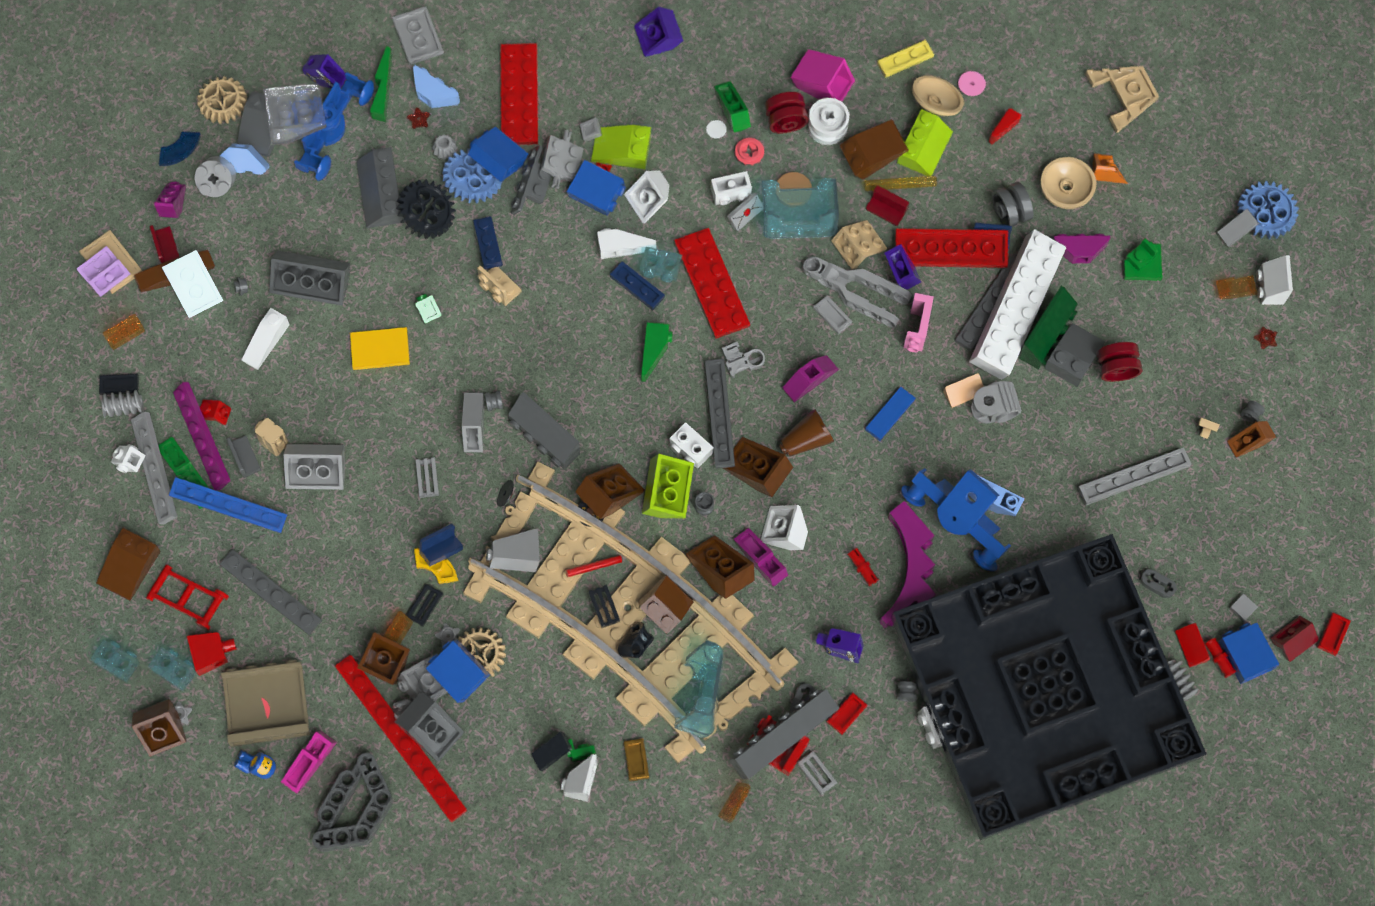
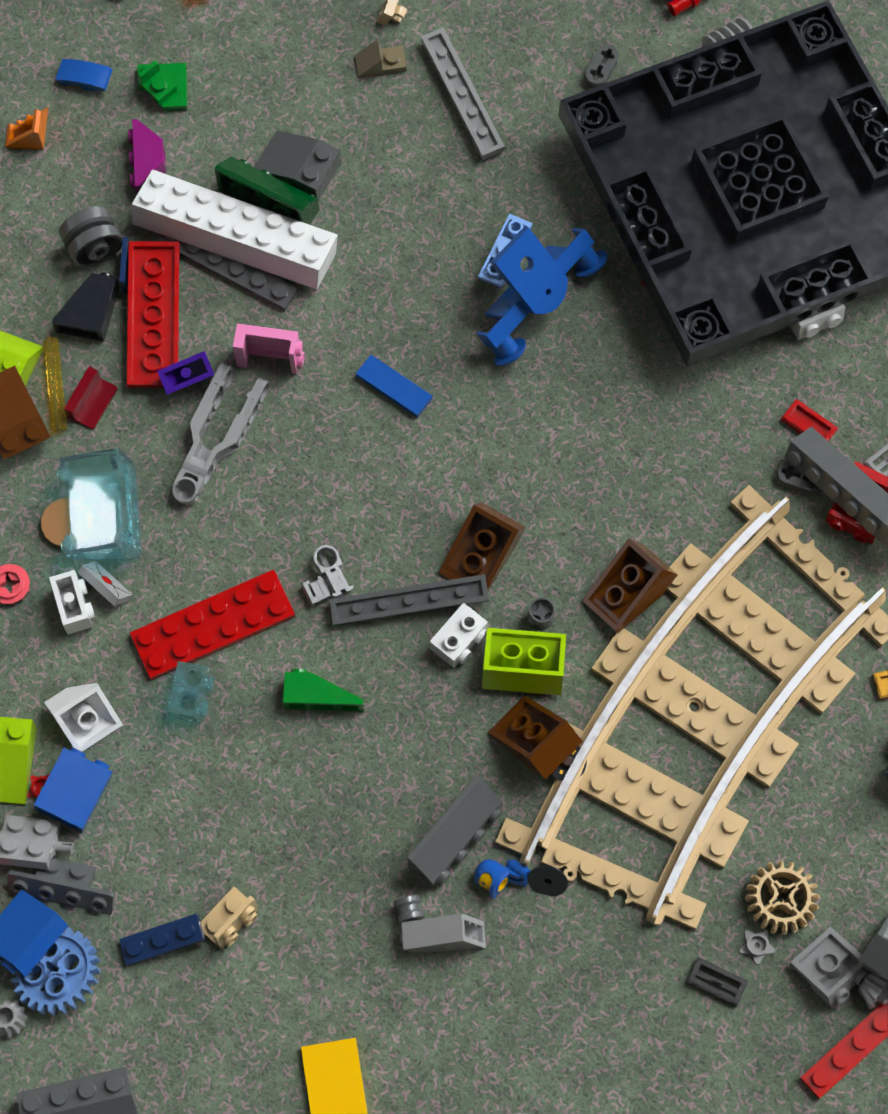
camera: 90 degrees left, 0 degrees up
(384, 659) = (811, 1024): reddish brown slope -> none
(398, 627) = (763, 1017): clear orange slope -> none
(411, 199) = (114, 1032): black gear -> none
(425, 462) = (525, 985): light grey tile -> none
(427, 308) = (268, 1019): bracket -> none
(440, 545) = (635, 963): dark blue panel -> none
(442, 570) = (655, 970): yellow tile -> none
(457, 670) = (818, 917): blue brick -> none
(511, 459) = (495, 876): none -> blue piece
(515, 552) = (638, 853): light grey slope -> none
(593, 566) = (643, 753): red bar -> none
(599, 591) = (699, 722): black tile -> none
(621, 243) = (158, 753): white slope -> none
(635, 642) = (749, 688): black piece -> none
(637, 285) = (222, 724): dark blue plate -> none
(665, 604) = (694, 650): reddish brown slope -> none
(708, 668) = (812, 582): clear light blue windscreen -> none
(761, 556) = (608, 538): magenta slope -> none
(785, 527) = (566, 509): white slope -> none
(806, 435) = (436, 485): reddish brown cone -> none
(809, 377) = (351, 486): magenta slope -> none
(832, 314) = (254, 464): light grey tile -> none
(842, 644) = (724, 421): dark purple torso -> none
(858, 242) = (149, 433): tan bracket -> none
(863, 567) = (612, 410): red pin -> none
(907, 691) = (774, 351): dark grey wheel -> none
(915, 537) = (640, 347): magenta arch -> none
(958, 206) = (89, 308): none -> black slope
(963, 390) = (356, 296): light nougat slope -> none
(1002, 402) = (375, 255): light grey piece -> none
(1072, 174) = (51, 159): tan dish -> none
(1119, 361) = (311, 106): dark red wheel -> none
(1152, 206) = (84, 73): none -> blue slope
(1164, 419) = (377, 61): none -> dark tan slope
(1192, 645) = (677, 28): red slope -> none

